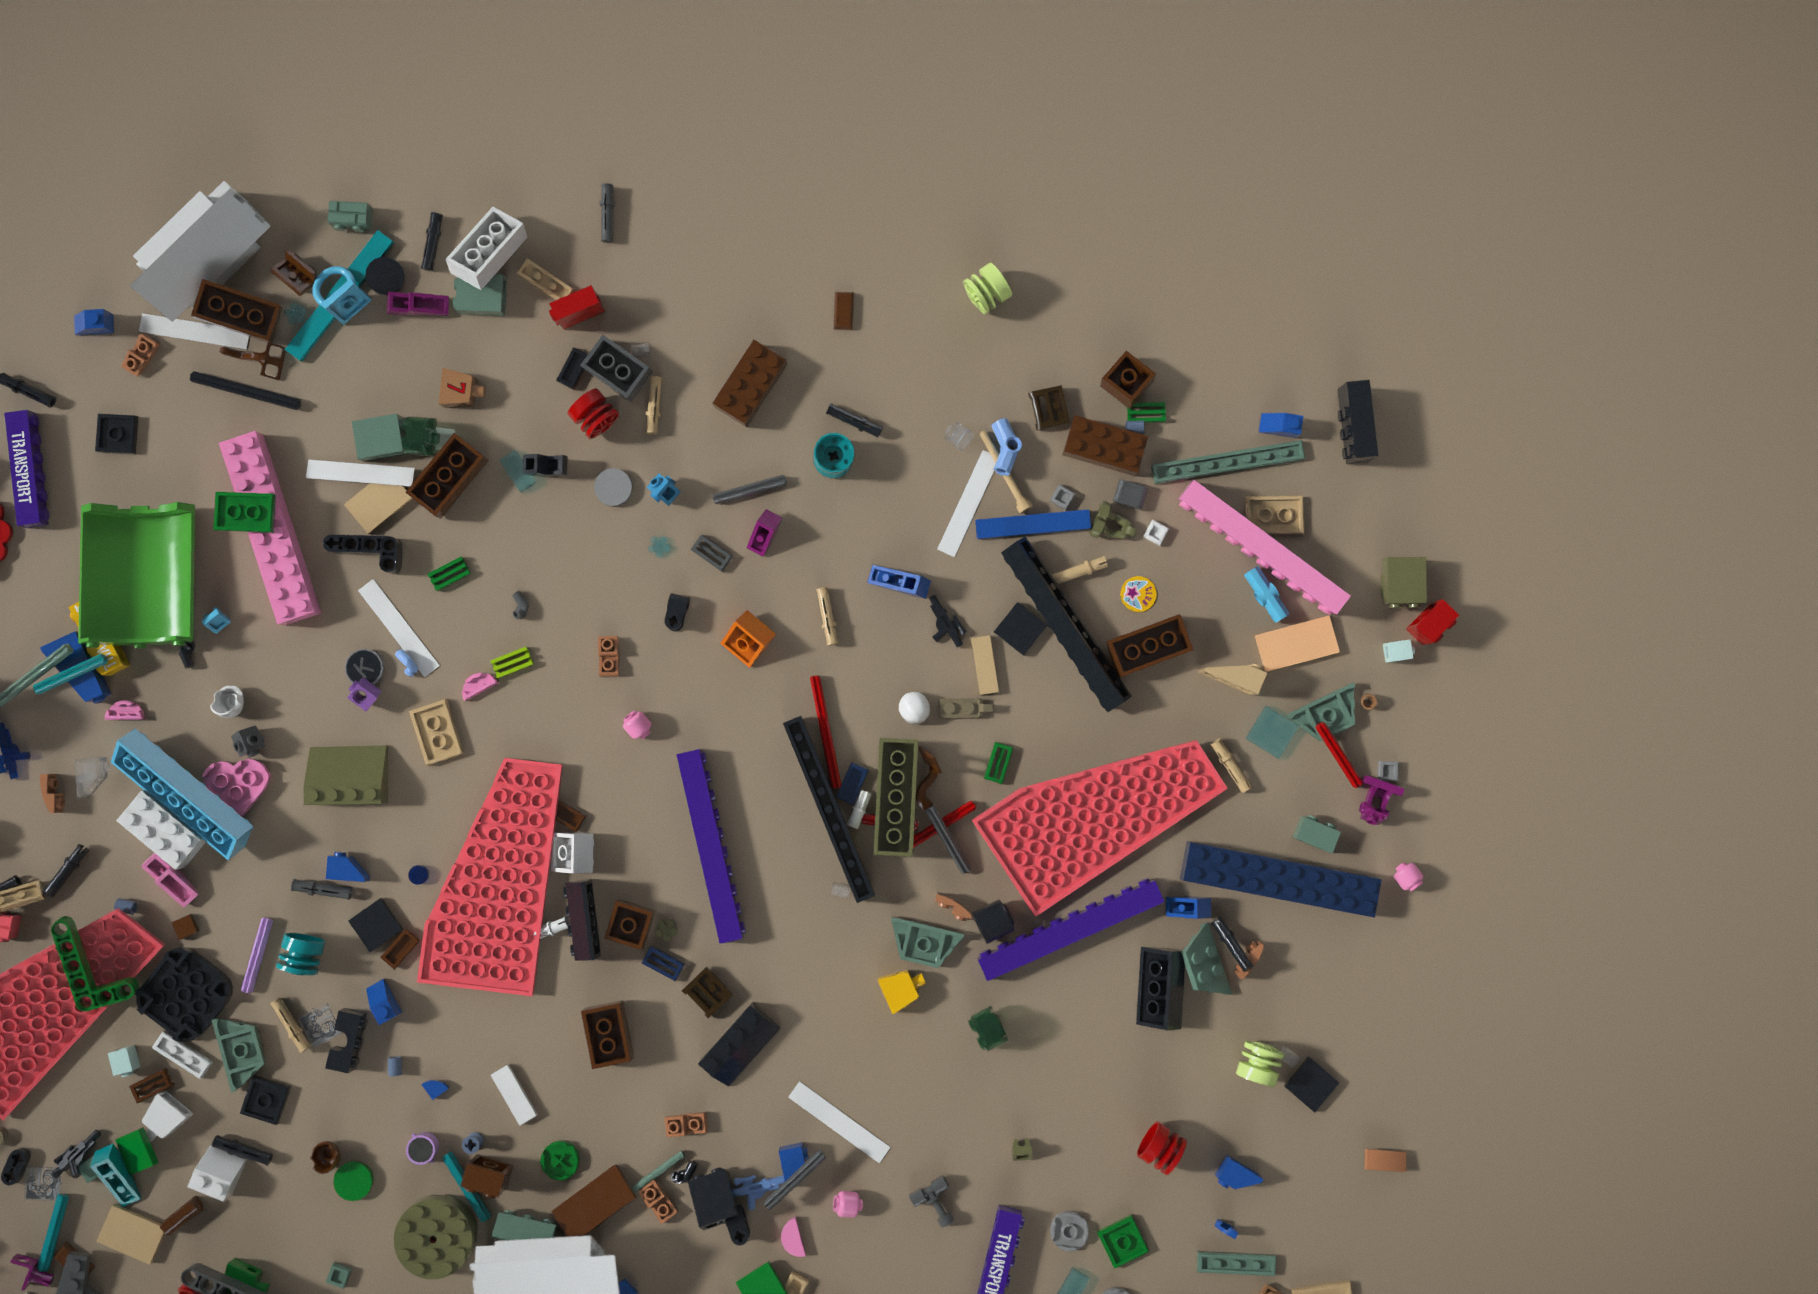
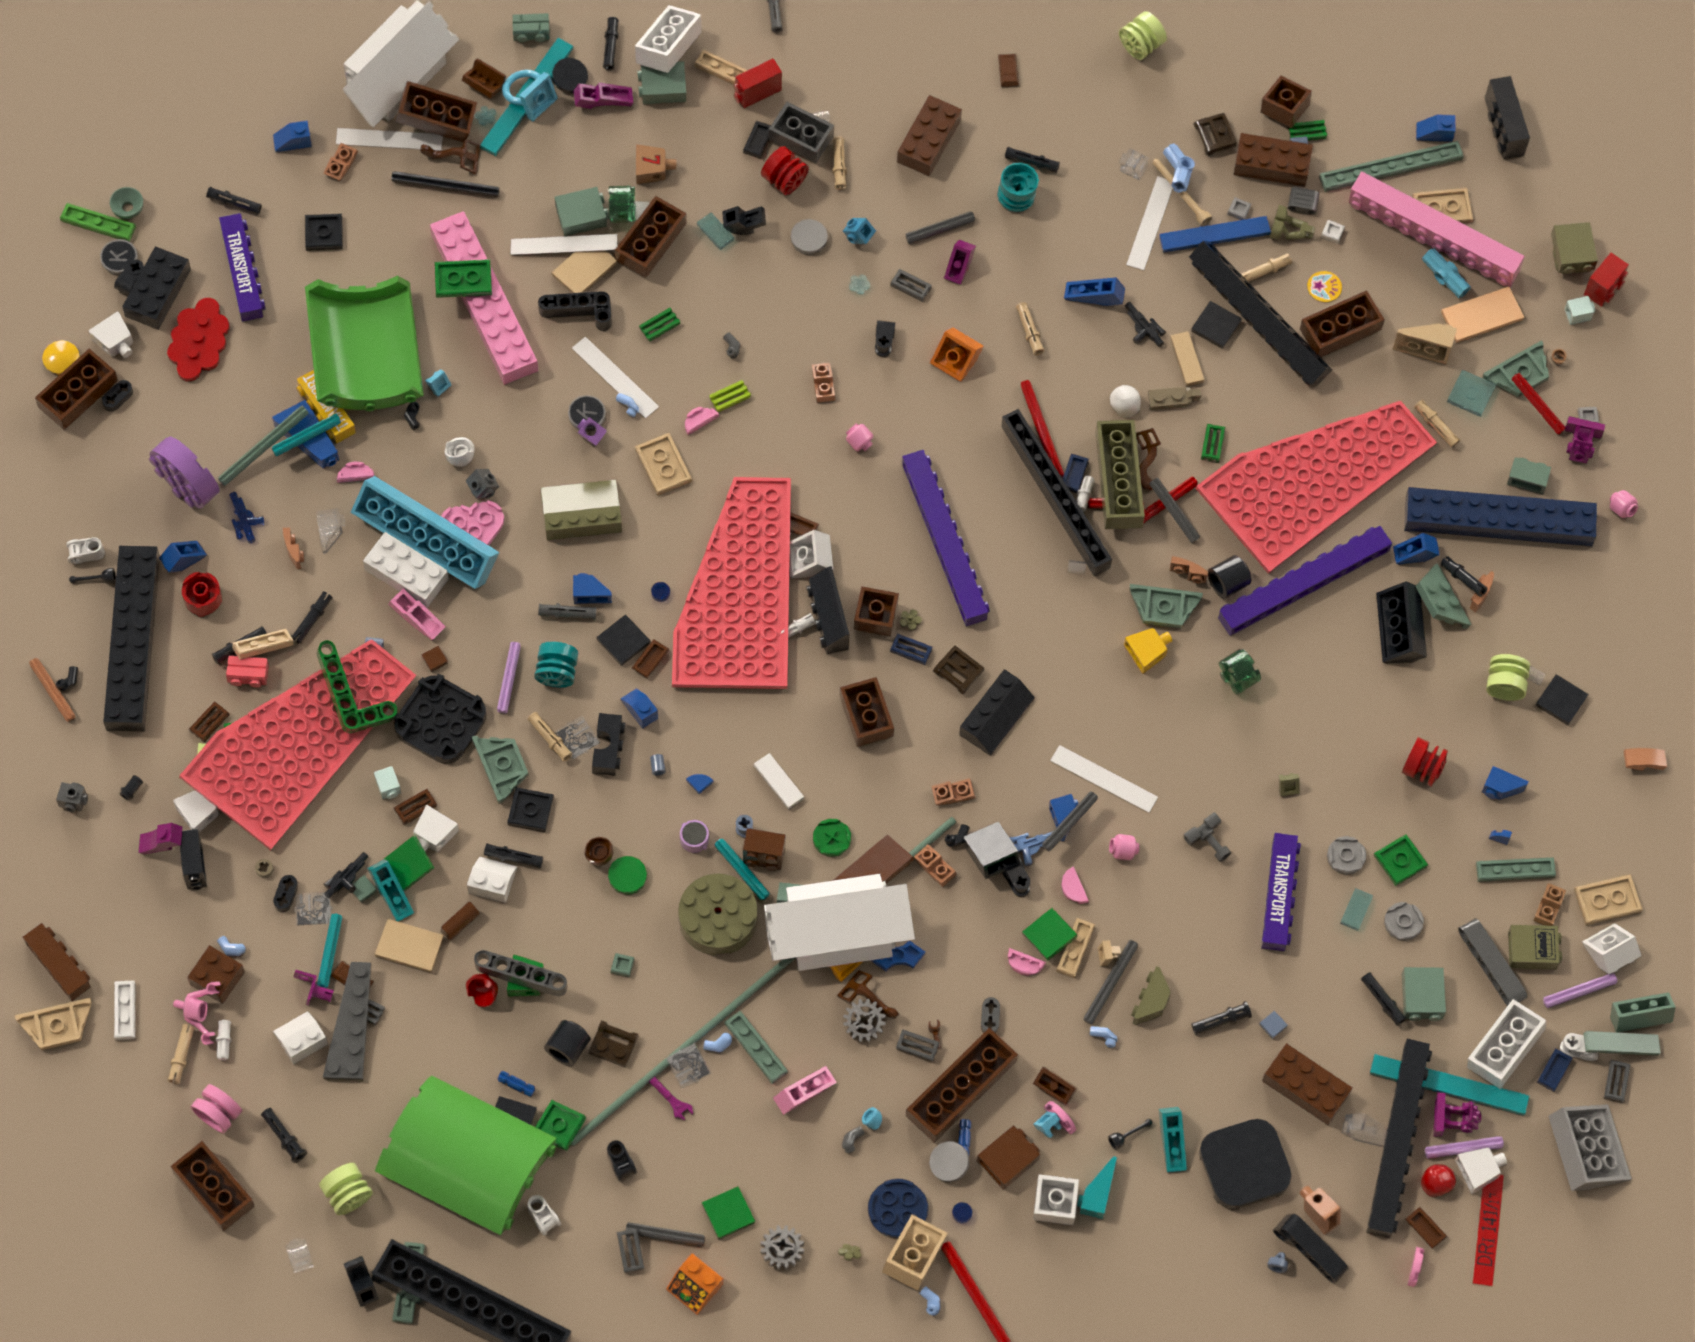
camera: 10 degrees left, 20 degrees down
(182, 1055) = (443, 775): white tile -> none

